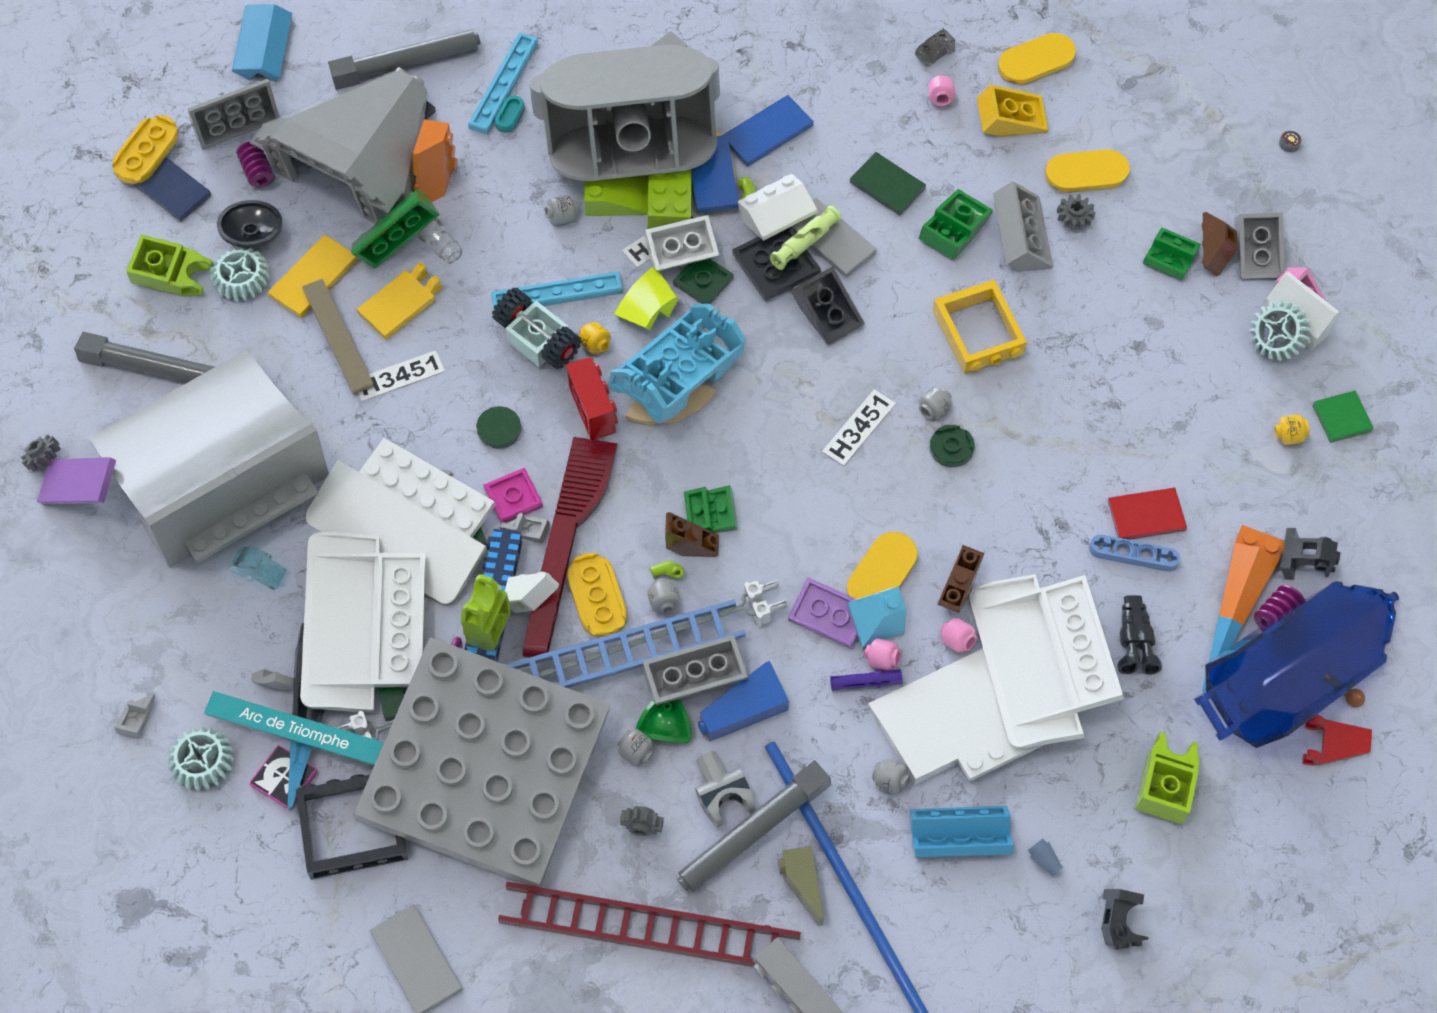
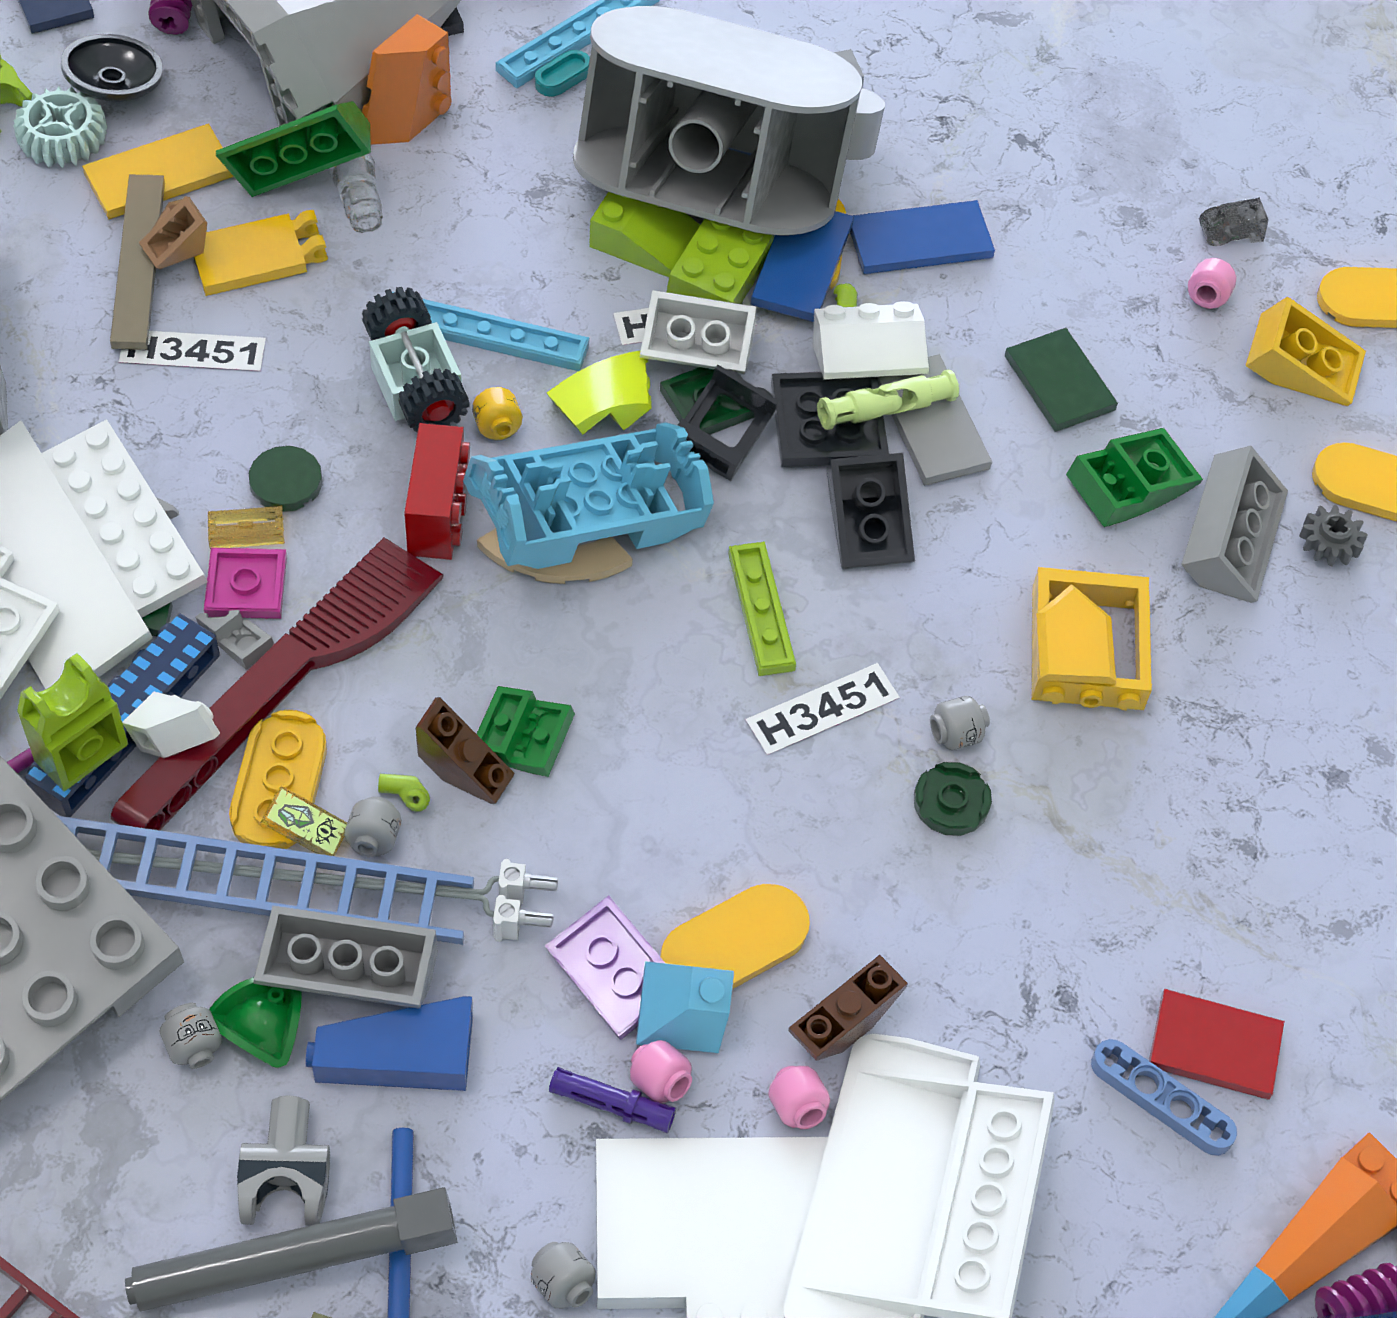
camera: 20 degrees right, 5 degrees down
(352, 310) = (176, 234): none -> medium nougat slope
(496, 467) = (246, 531): none -> clear yellow tile
(561, 209) = (555, 221): light grey head -> none
(627, 611) = (304, 822): none -> tile
(641, 821) = (125, 1156): dark grey gear -> none
(735, 309) = (714, 453): none -> black window
(797, 386) = (761, 609): none -> lime tile
(974, 332) = (1075, 640): none -> yellow tile
(1135, 633) = (1097, 1228): black piece -> none

